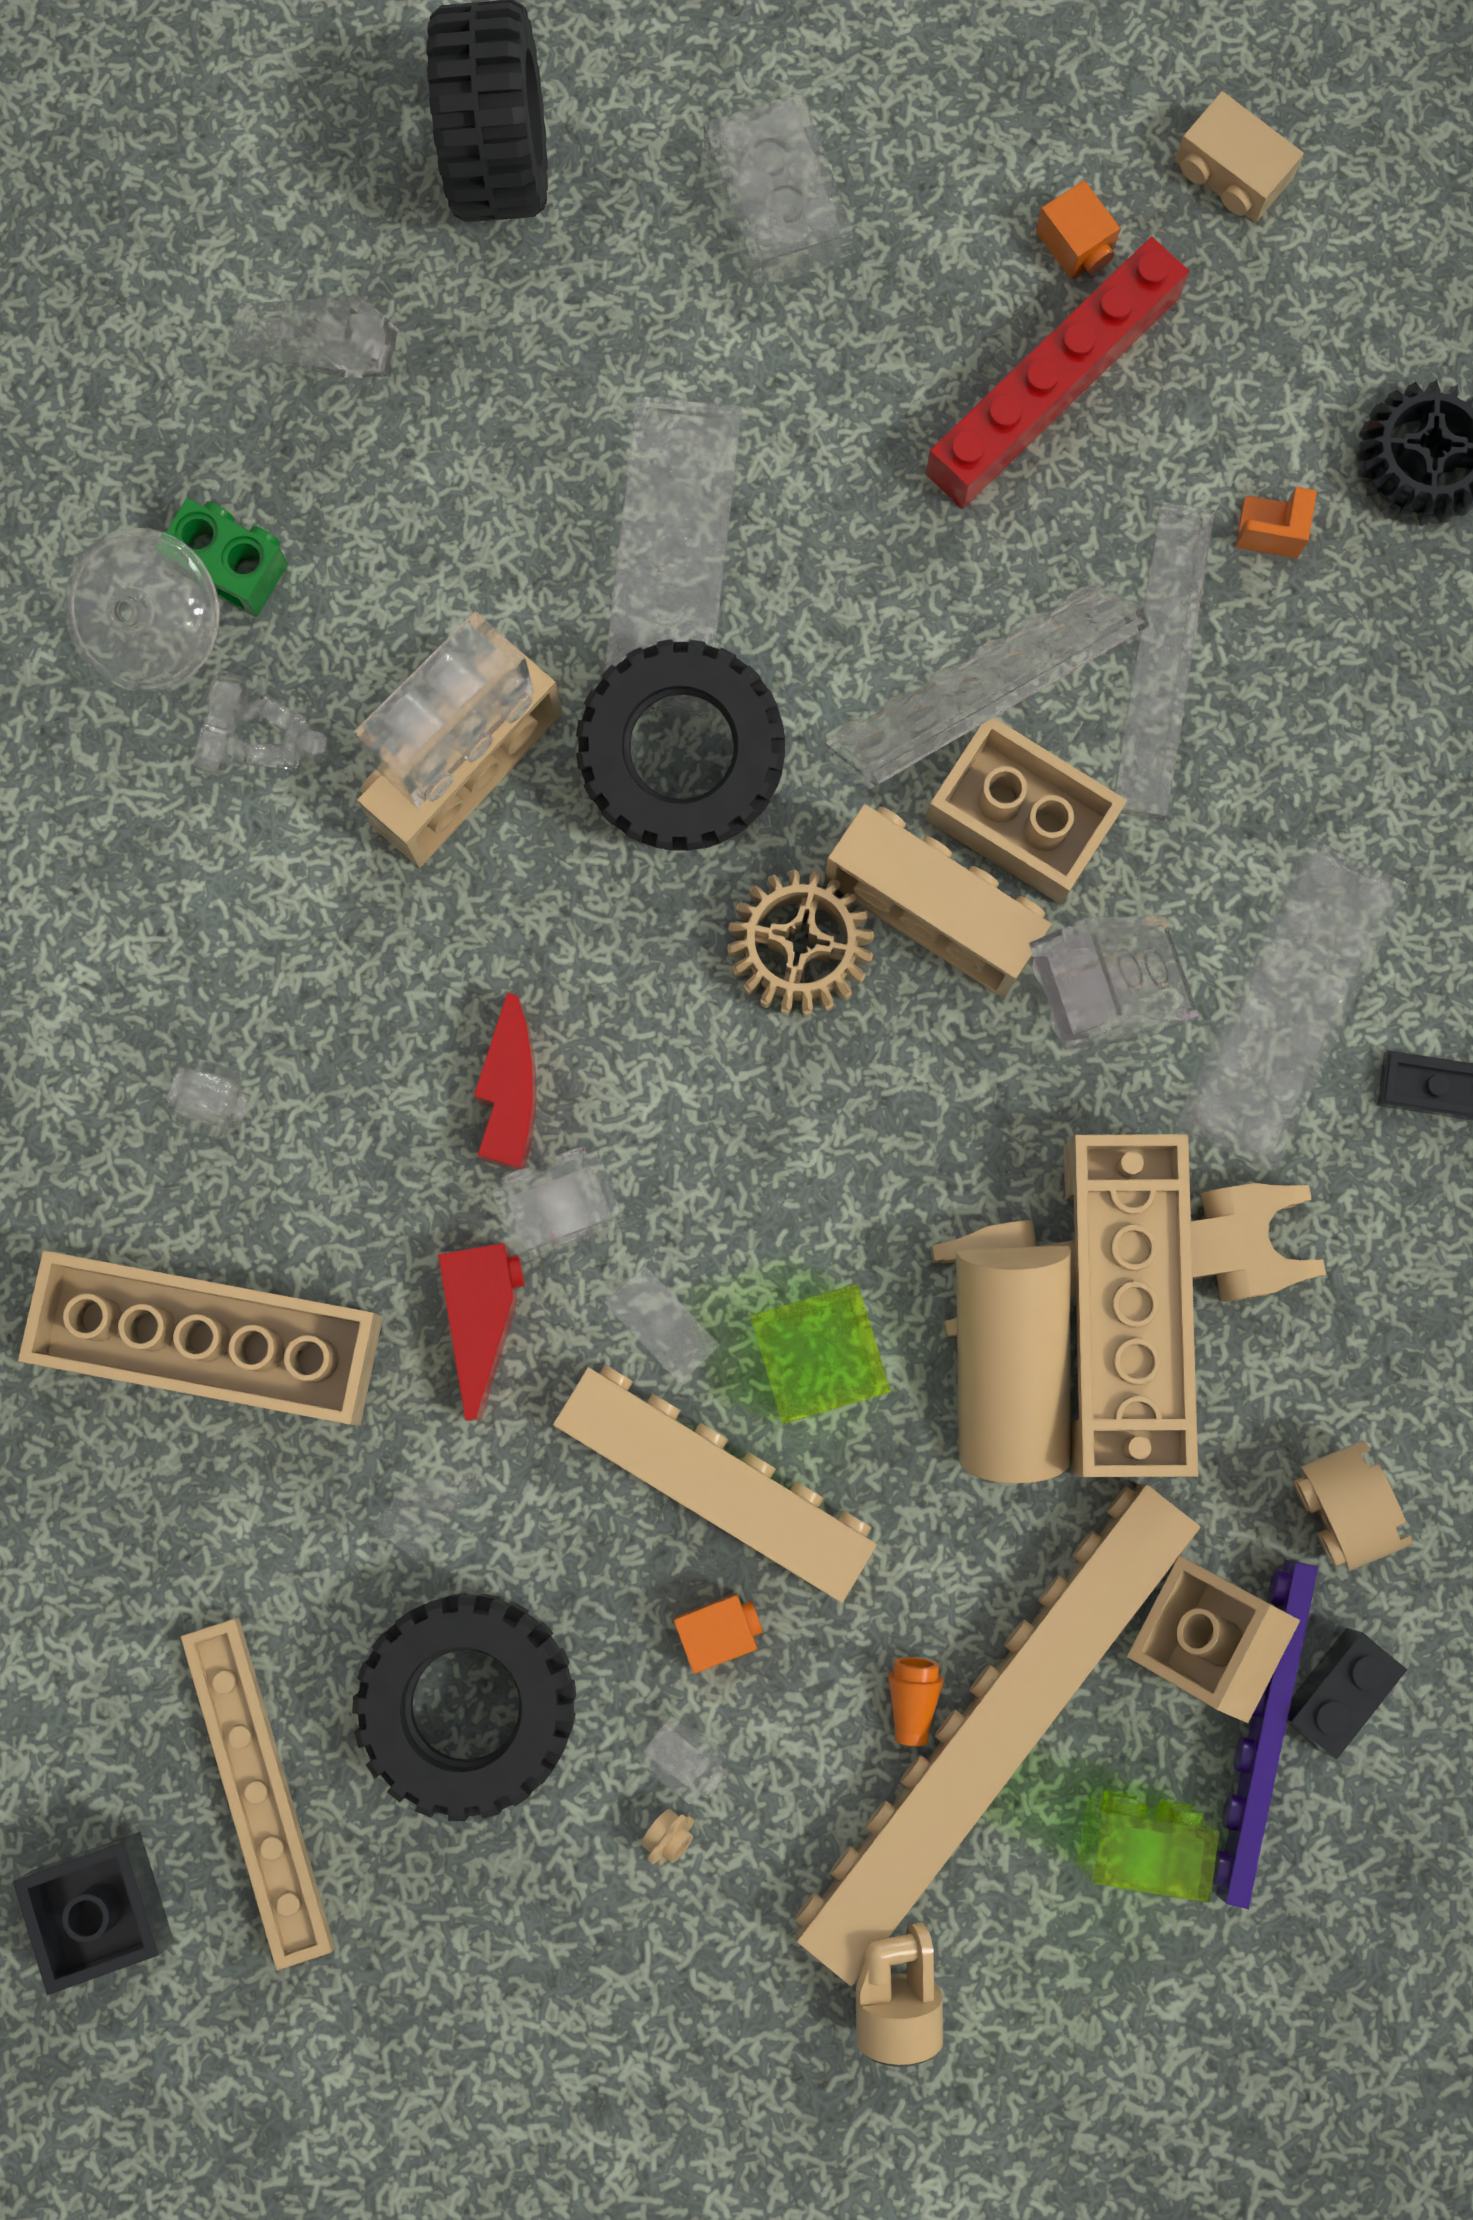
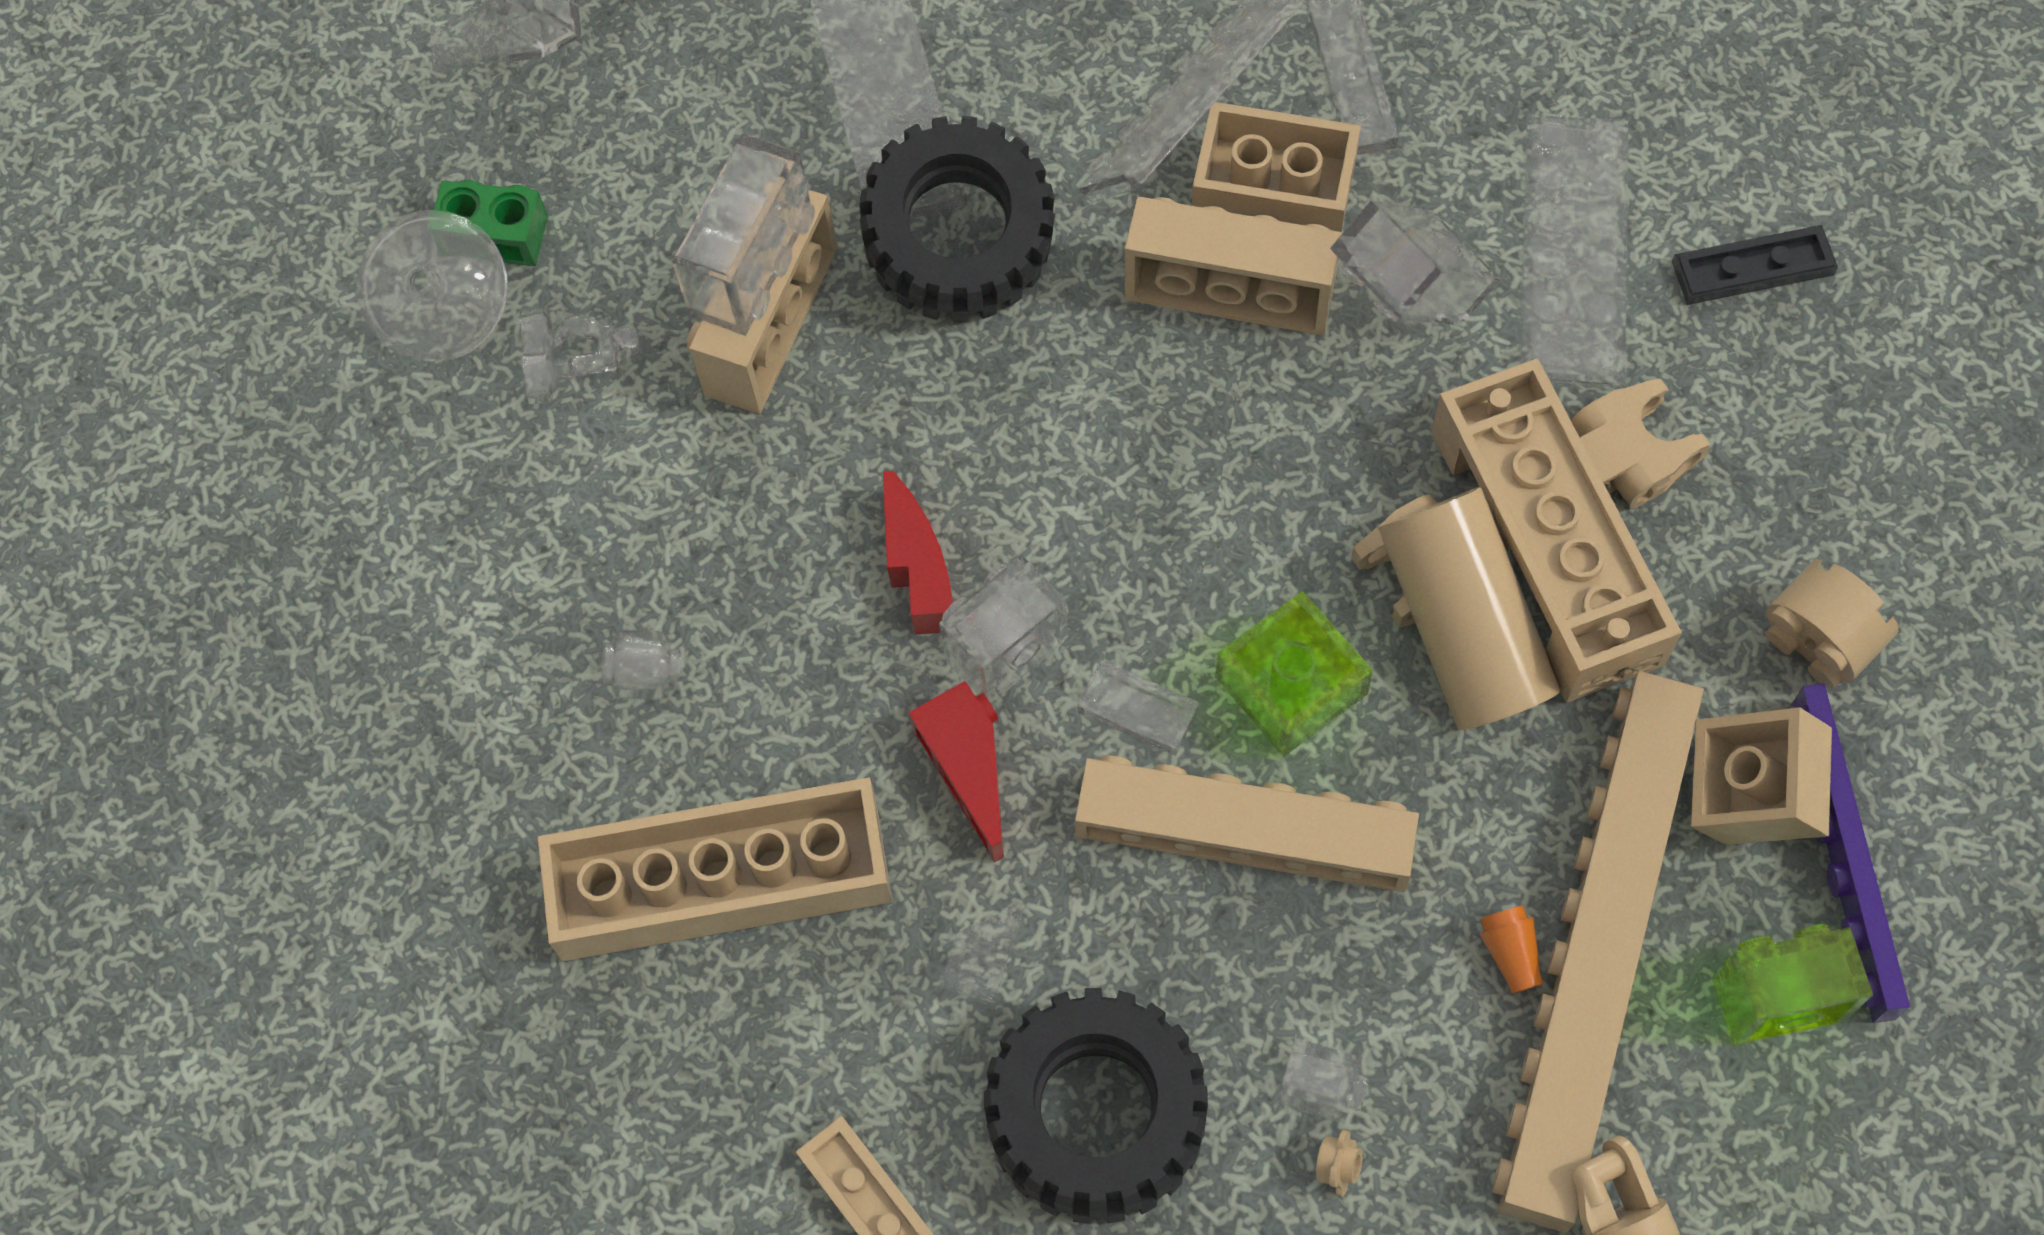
camera: 15 degrees left, 15 degrees down
(718, 1631) = (1304, 954): orange brick -> none
(775, 937) = (1164, 334): tan gear -> none
(1343, 1692) = (1900, 788): black brick -> none

